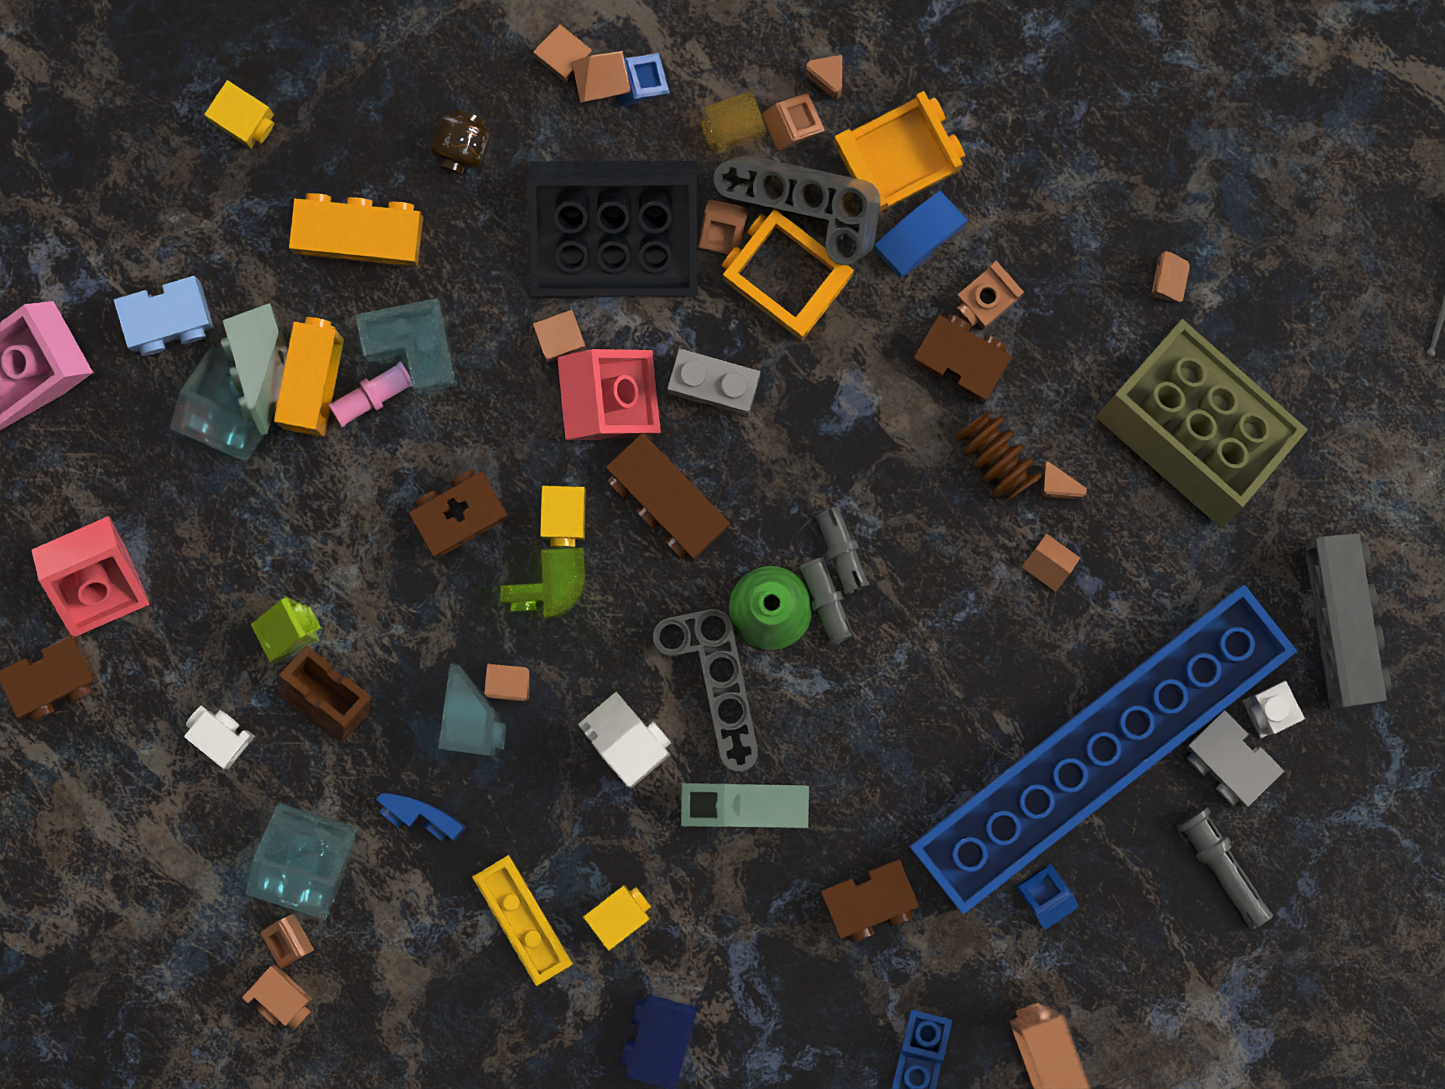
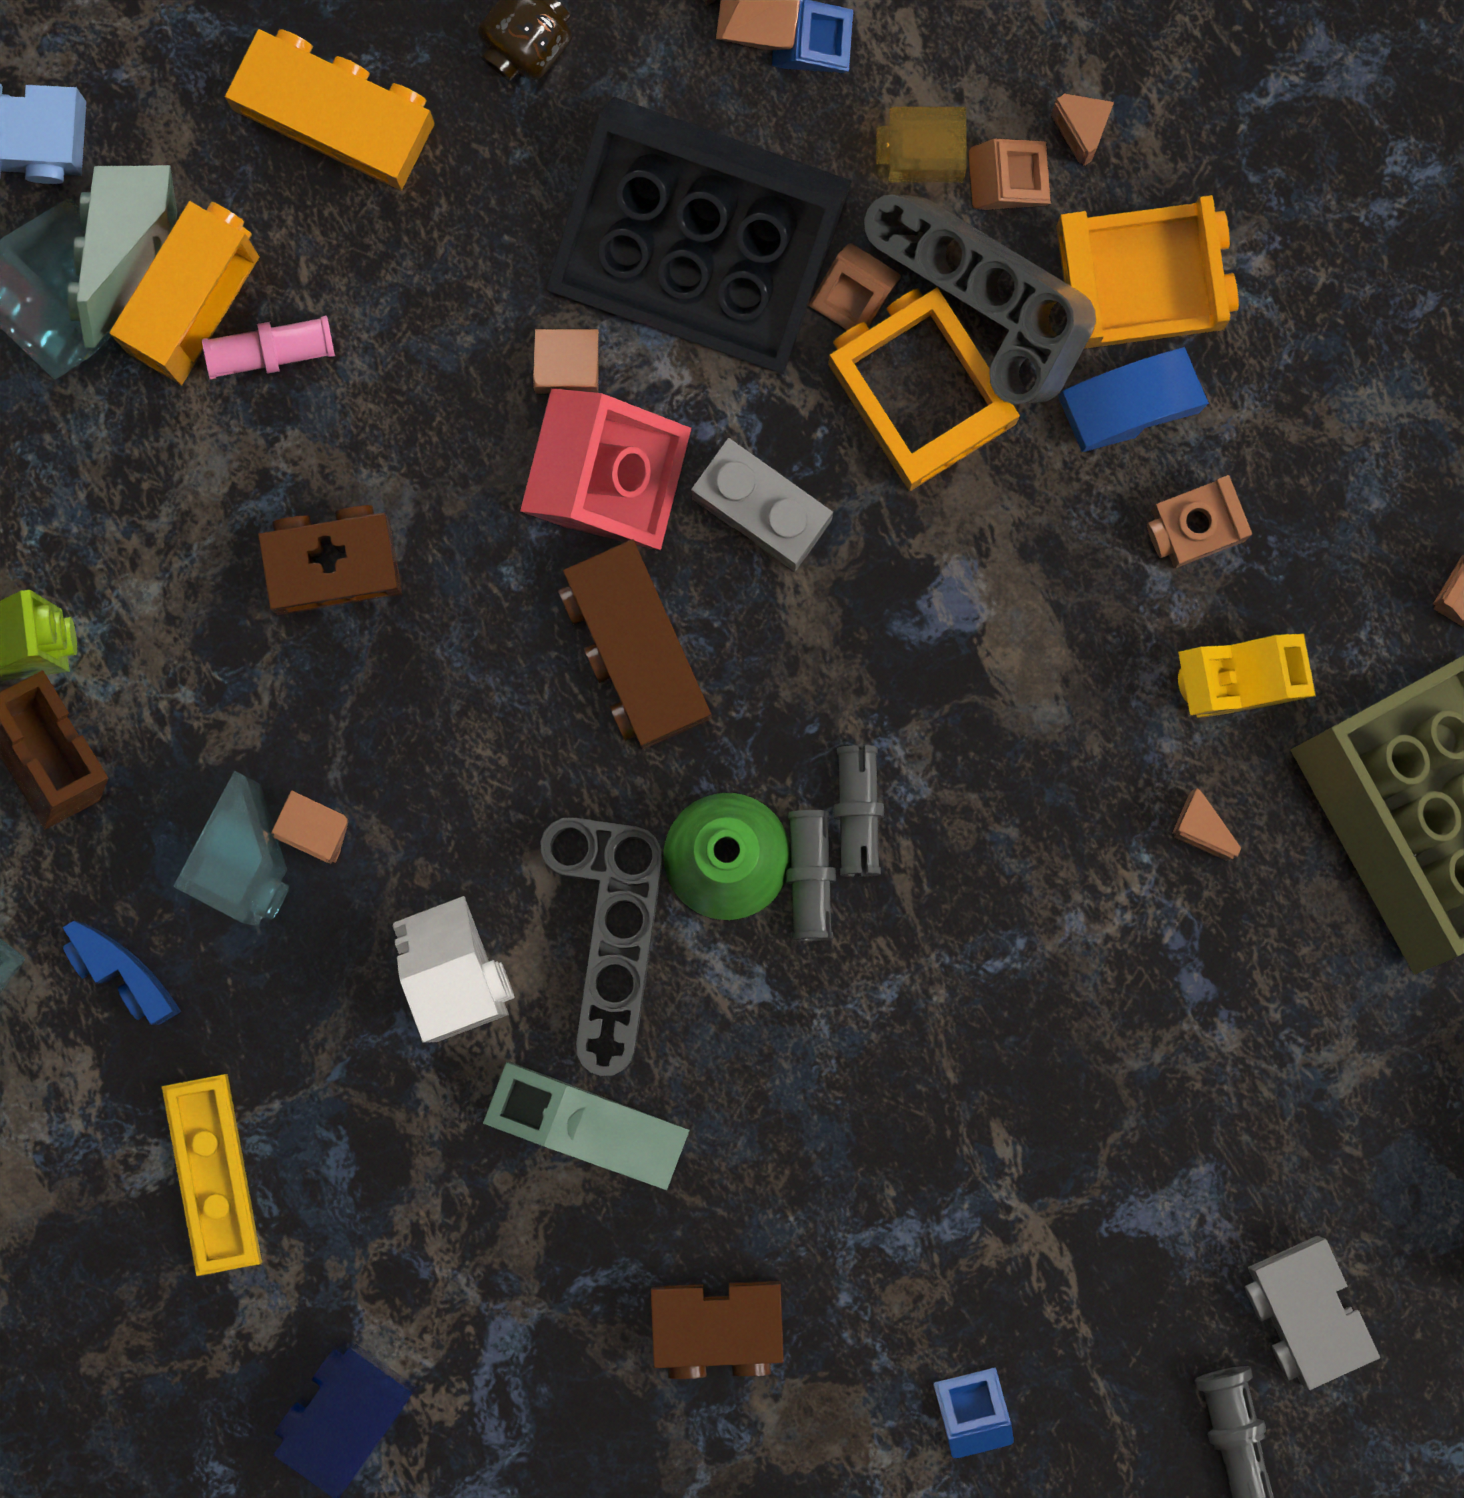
camera: 20 degrees right, 0 degrees up
(411, 330) = (364, 282): clear light blue brick -> none
(561, 587) = (441, 714): clear neon green brick -> none
(563, 515) = (478, 617): yellow brick -> none
(618, 916) = (349, 1219): yellow brick -> none
(964, 356) = (1132, 595): reddish brown brick -> none
(998, 456) = (1130, 756): reddish brown piece -> none
(1051, 380) = (1245, 675): none -> yellow brick
(1051, 562) = (1151, 936): nougat slope -> none
(1102, 749) = (1130, 1231): blue brick -> none
(1273, 709) = (1395, 1262): white brick -> none

